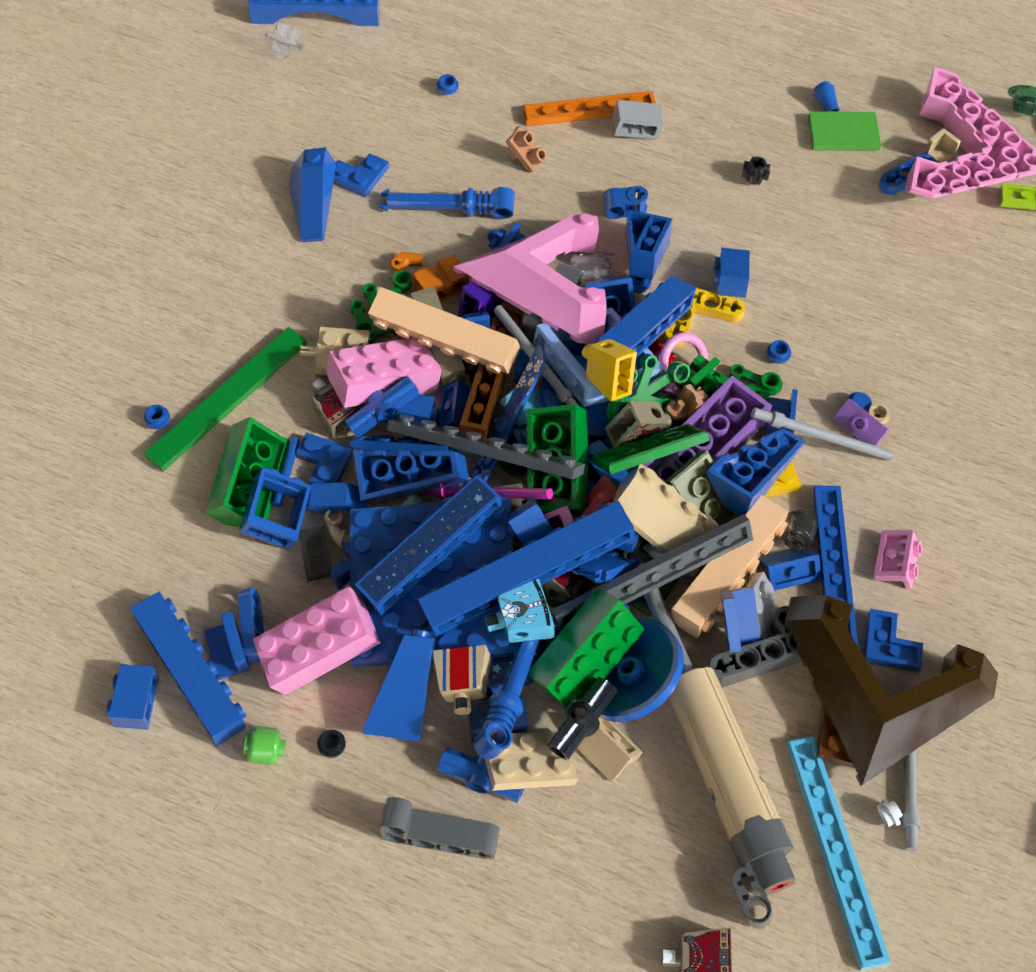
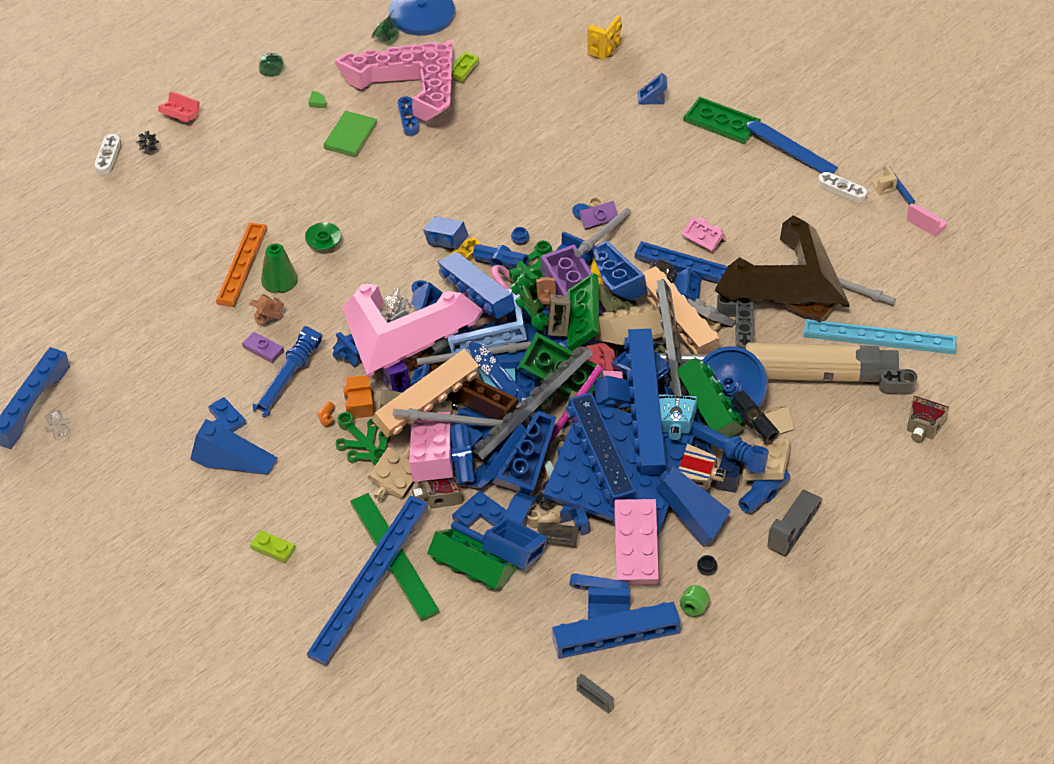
camera: 65 degrees left, 10 degrees down
(83, 675) = (595, 693): none -> dark grey tile
(133, 696) = (625, 666): blue brick -> none
(156, 411) = (389, 598): blue plate -> none
(177, 381) = (367, 580): none -> blue plate
(201, 281) = (272, 546): none -> lime plate
(396, 326) = (414, 414): none -> light grey bar
(447, 84) = (166, 339): blue plate -> none
(477, 170) = (263, 347): none -> medium lavender plate
(587, 138) = (277, 270): none -> green cone
(610, 368) = (517, 303): yellow torso -> none
(620, 199) = (347, 270): blue piece -> none
(637, 119) = (276, 232): light grey brick -> none
(646, 242) = (396, 267): blue wedge -> none
(665, 161) = (322, 236): none -> green dish
(726, 341) = (499, 256): none -> blue piece
(740, 617) = (719, 318): panel -> none
(756, 170) = (361, 190): black gear -> none
(826, 96) = (316, 130): blue cone -> none
(877, 82) = (317, 100): none -> bright green tile
(886, 649) = (769, 256): blue plate -> none
(889, 812) = (869, 302): white plate -> none
(903, 21) = (271, 64): none -> clear green hair
(943, 146) = (399, 87): tan panel -> none

